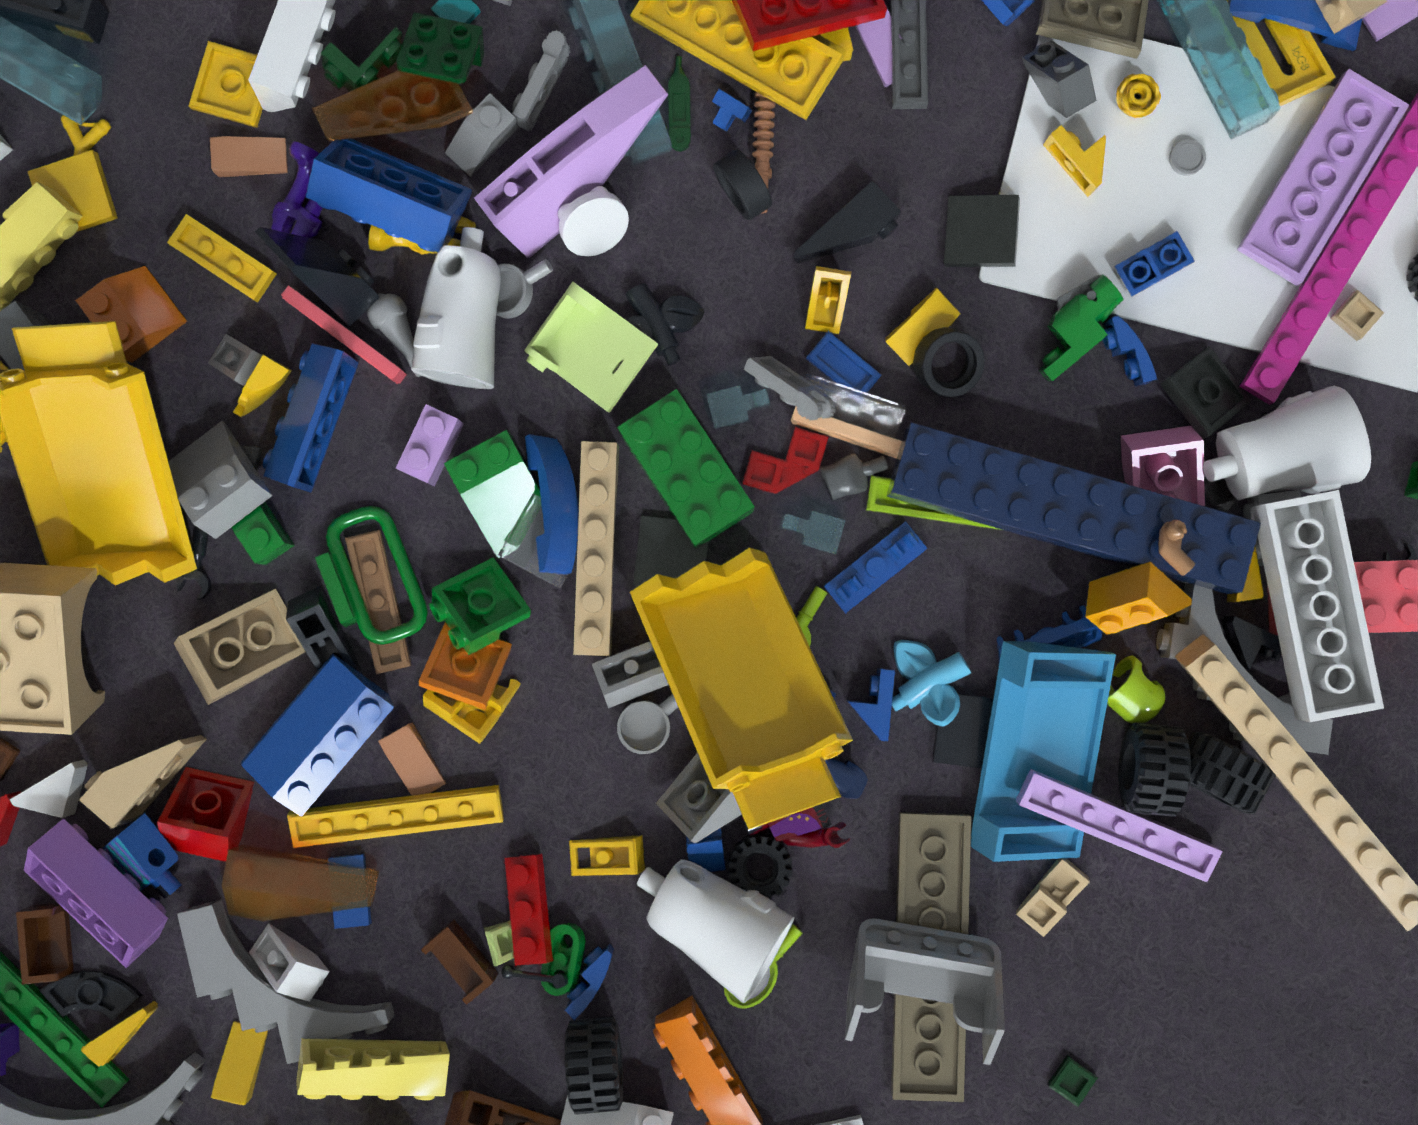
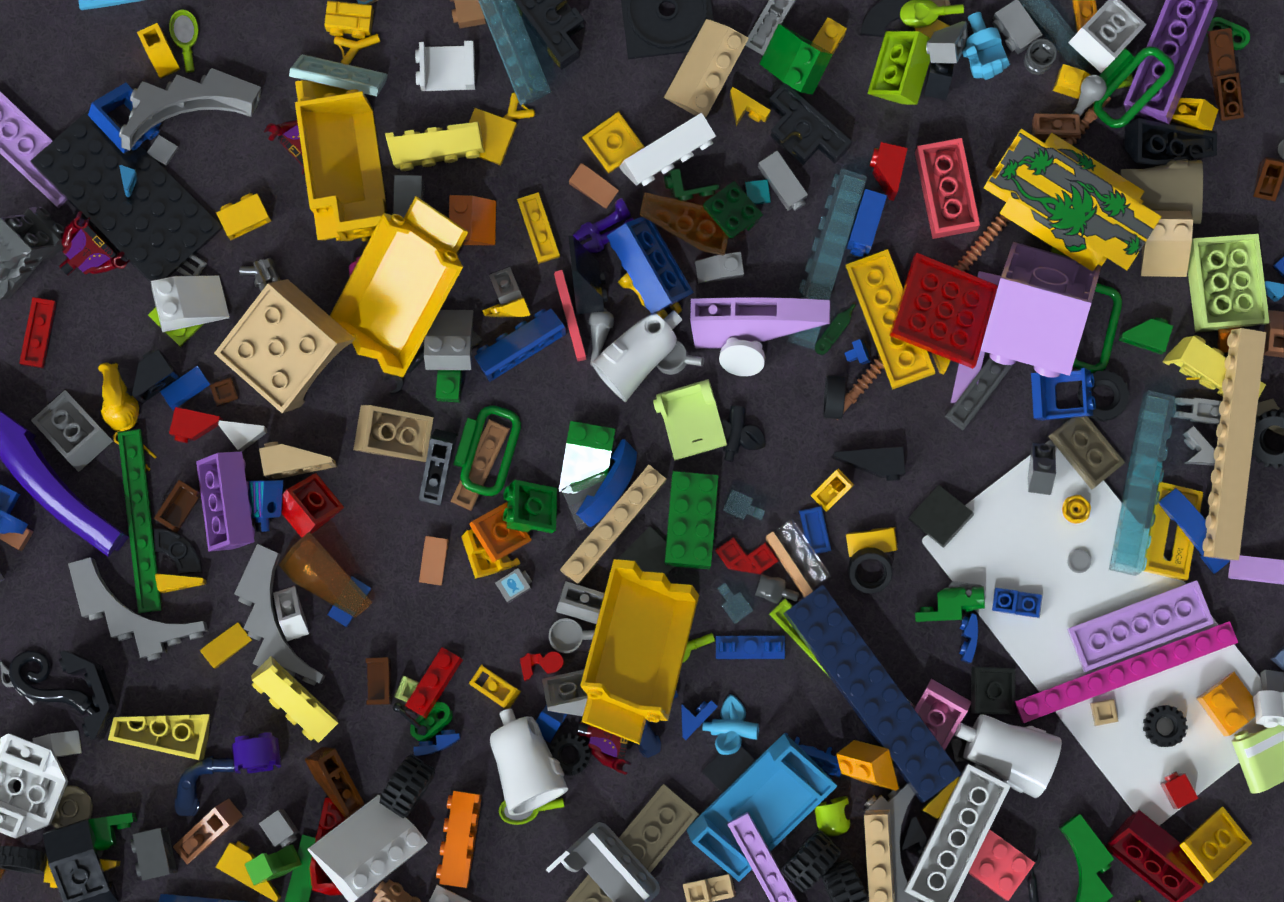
camera: 40 degrees right, 5 degrees down
(317, 735) = (398, 508): blue slope -> none
(396, 816) = (403, 582): yellow tile -> none
(430, 445) = (569, 405): lavender brick -> none
(532, 715) = (514, 585): none -> brick
(541, 80) = (773, 263): light grey hinge -> none
(651, 777) = (550, 663): none -> red leg
(792, 387) = (778, 520): light grey hinge -> none
(1083, 167) = (1018, 523): yellow slope -> none
(1170, 546) = (904, 747): medium nougat arm -> none

